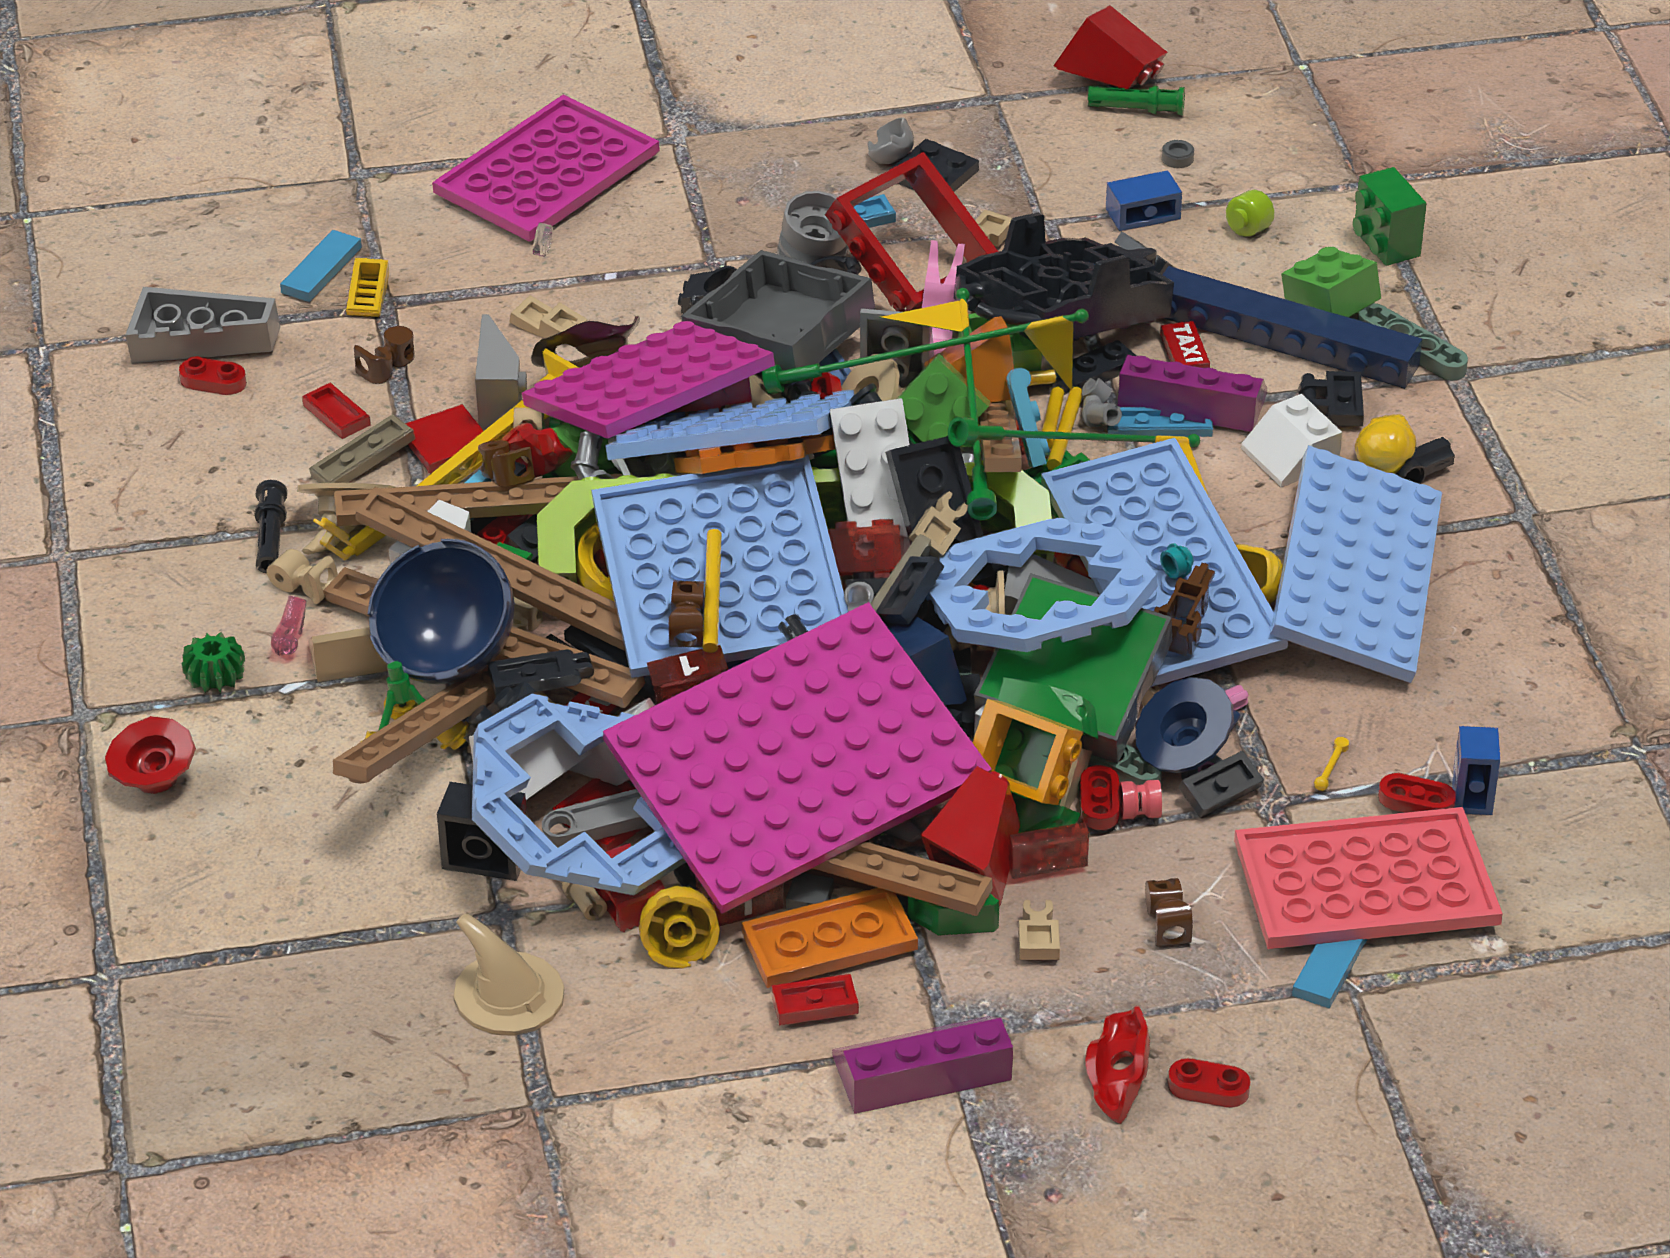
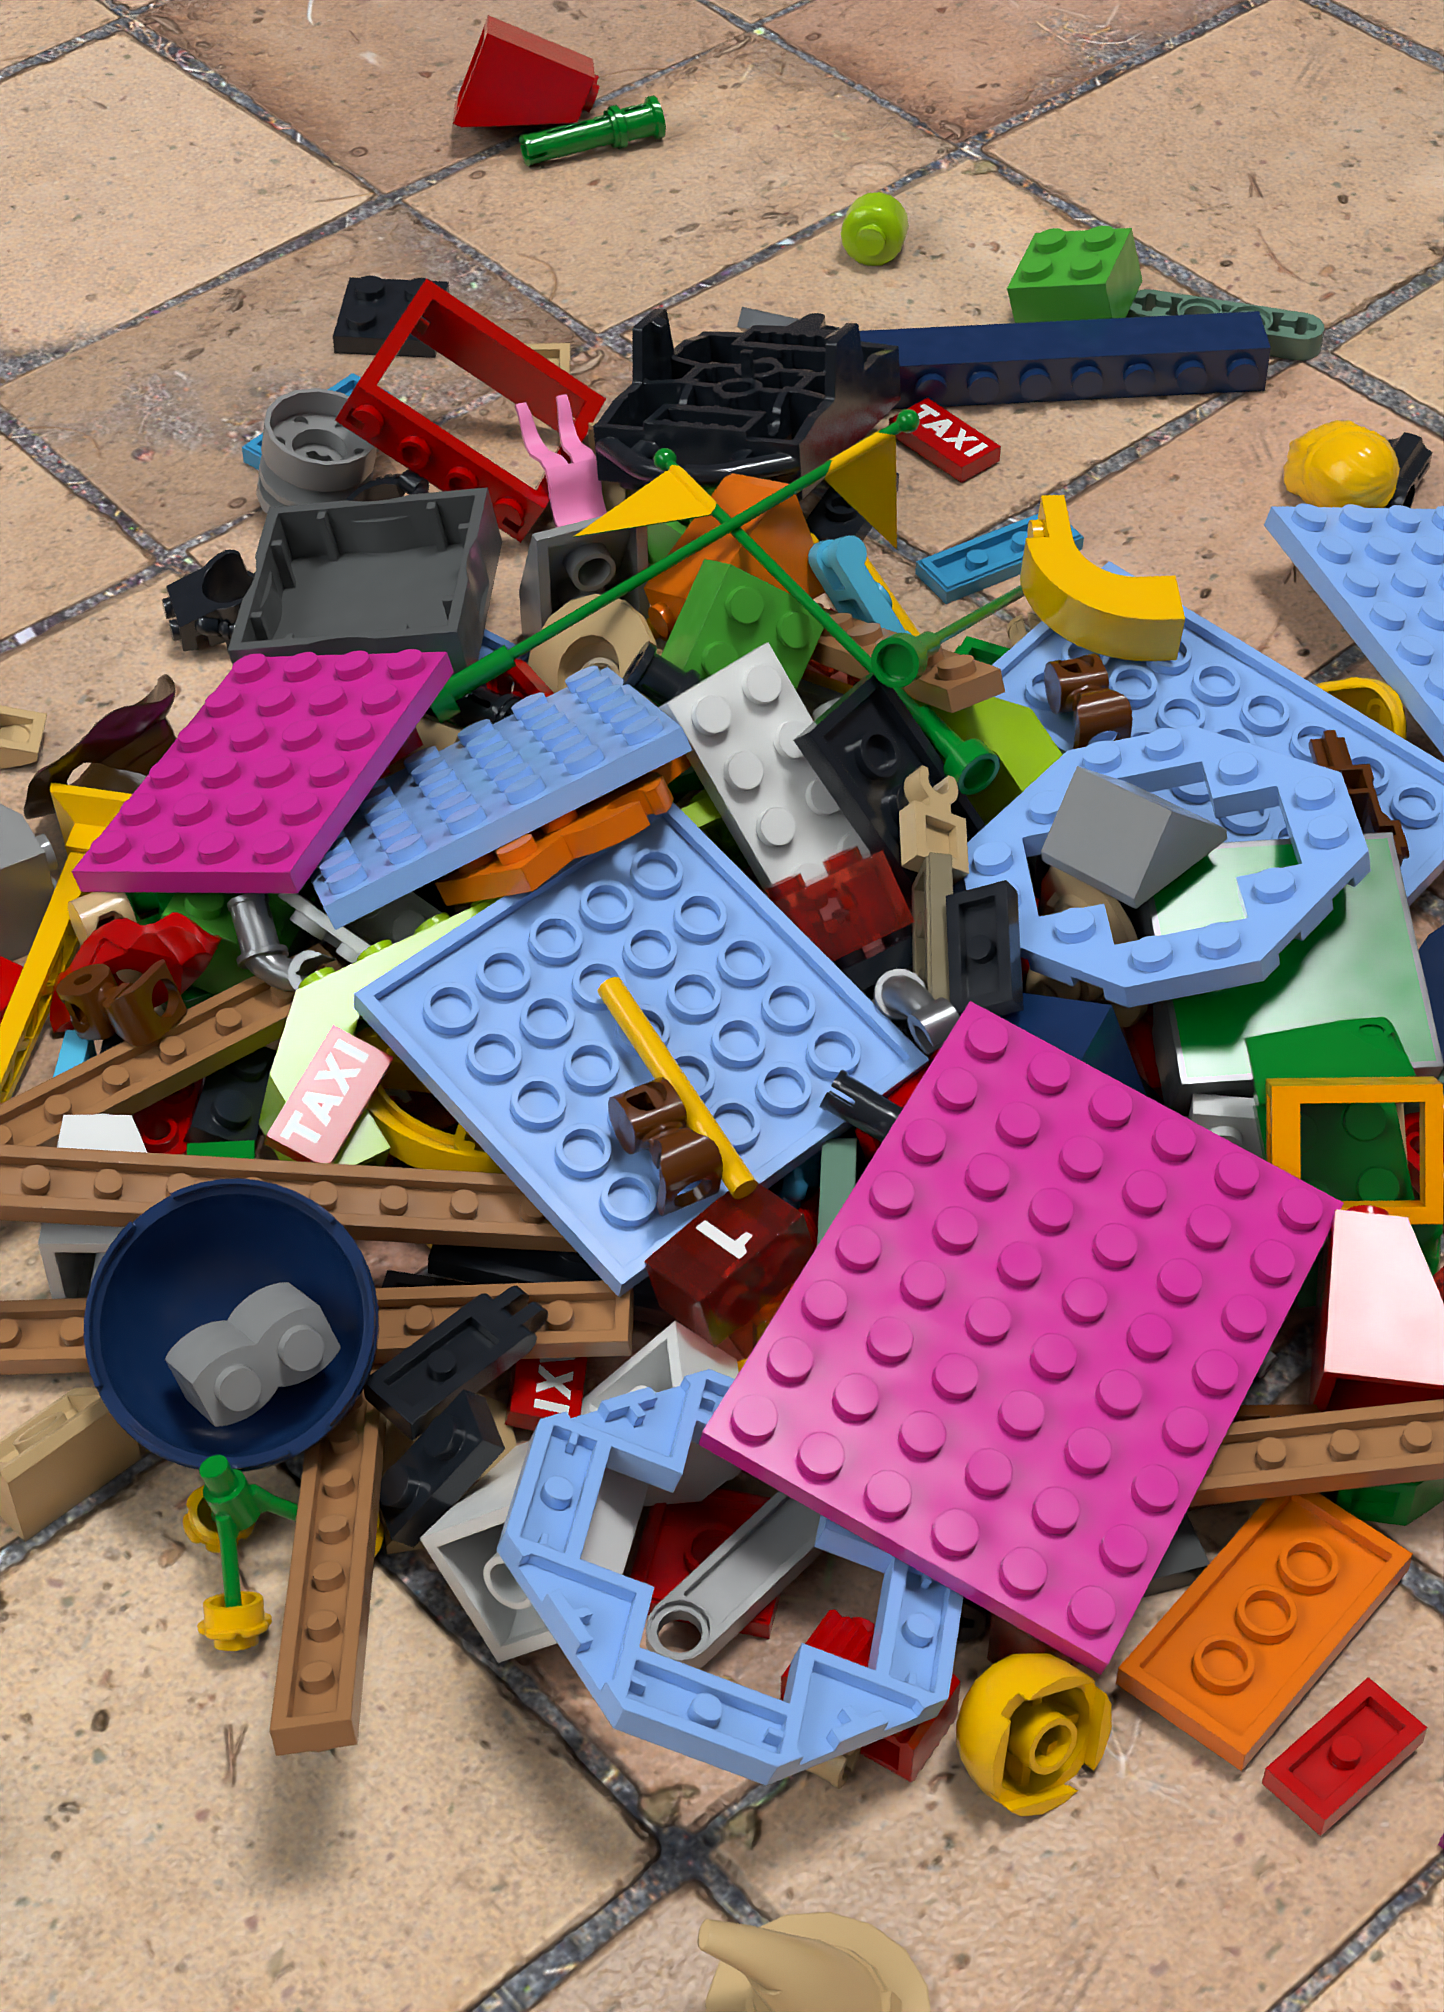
camera: 30 degrees left, 5 degrees up
(436, 630) = (240, 1362): none -> light grey brick
(464, 844) = (548, 1728): black brick -> none
(556, 536) = (329, 1099): none -> tile
(893, 143) = (310, 295): light grey hair -> none
(1023, 561) = (1125, 837): none -> light grey slope
(1090, 496) = (1084, 688): none -> reddish brown leg
(1095, 410) = (909, 572): light grey piece -> none
(1136, 457) = (1093, 606): none -> yellow arch
(1143, 200) = (721, 260): blue brick -> none
(1176, 561) = (1276, 735): teal plate -> none
(1177, 154) = (703, 187): dark grey tile -> none
(1192, 391) = (1004, 493): magenta slope -> none
(1284, 435) = (1211, 512): white slope -> none
(1342, 393) = (1214, 434): black plate -> none
(1389, 216) = (1068, 167): green brick -> none

